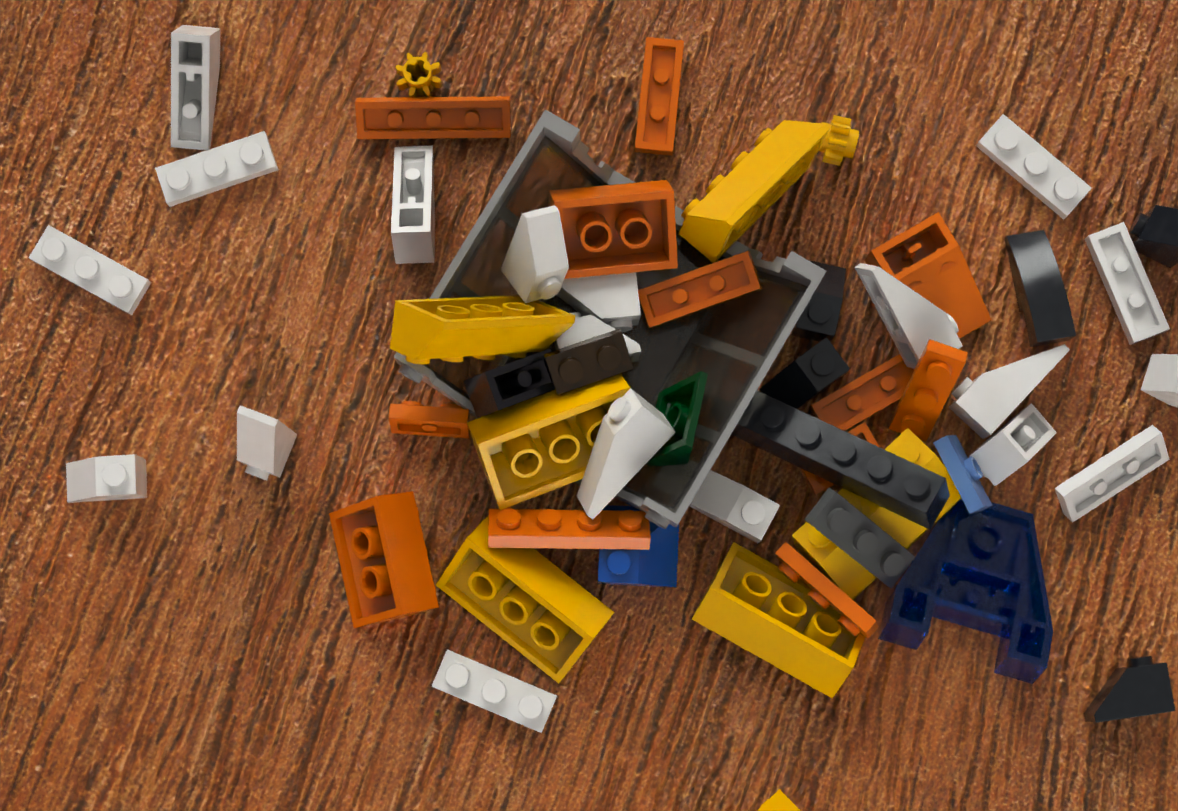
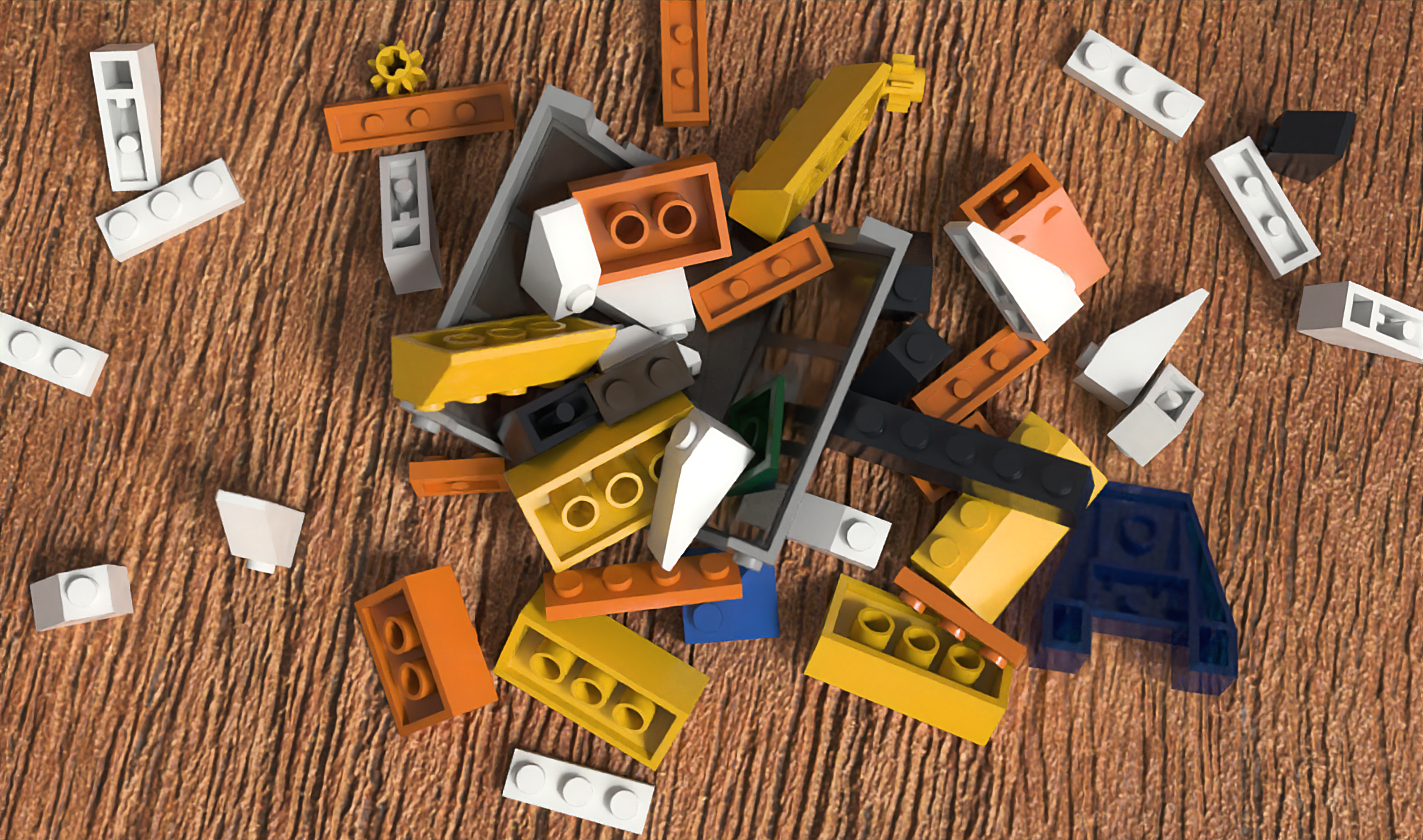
camera: 10 degrees left, 0 degrees up
(859, 537) = (992, 550): dark grey plate -> none
(928, 389) = (1050, 361): orange plate -> none
(964, 473) = (1104, 455): medium blue plate -> none
(1039, 289) = (1161, 227): black slope -> none
(1112, 473) = (1277, 433): white plate -> none
(1133, 692) = (1339, 691): black slope -> none

